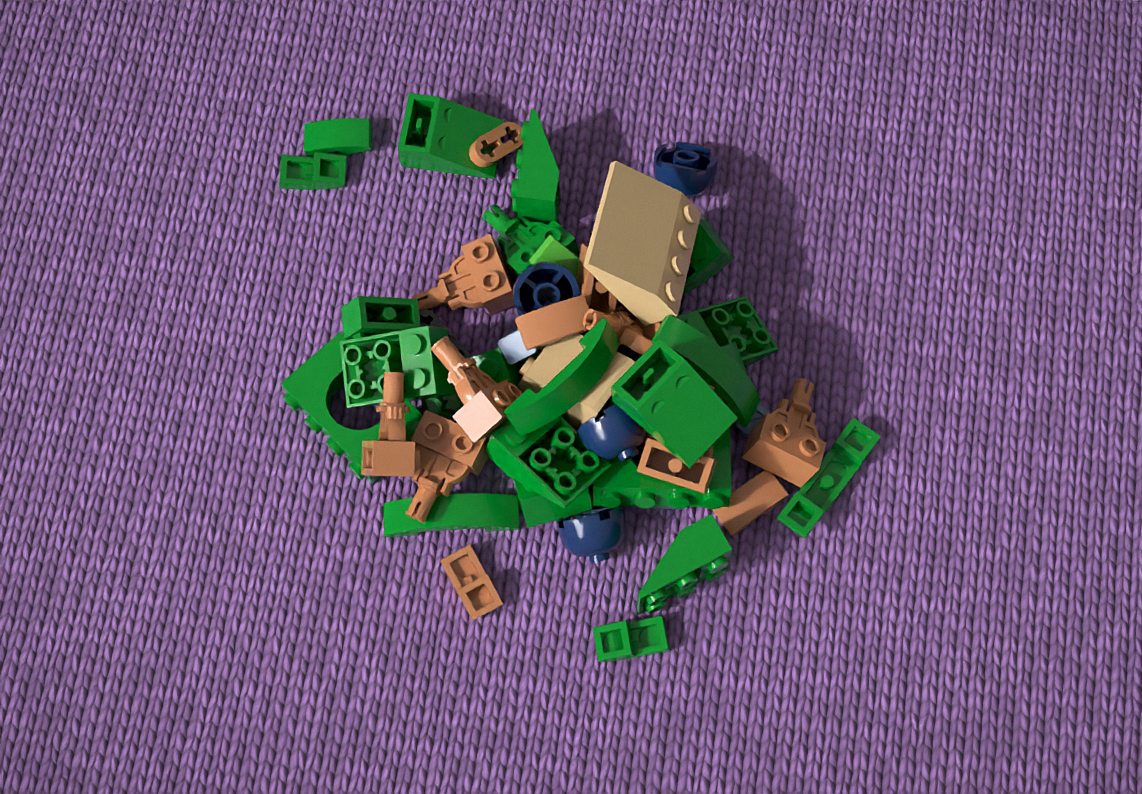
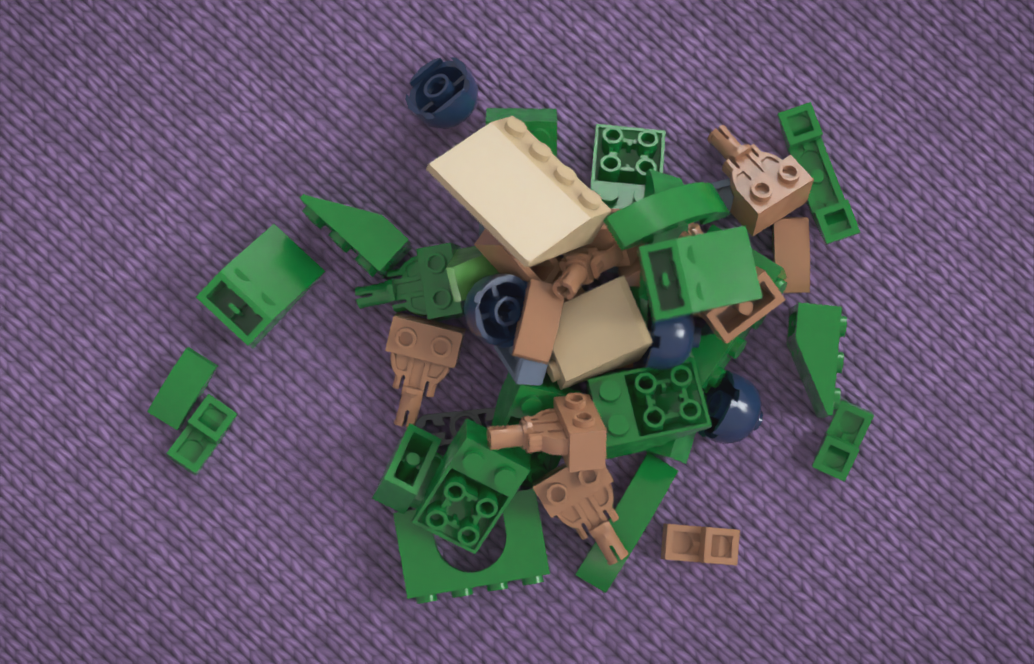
camera: 60 degrees left, 15 degrees up
(391, 452) = (552, 548): nougat brick -> none
(493, 138) = (290, 248): nougat beam -> none
(570, 385) = (615, 349): green slope -> none

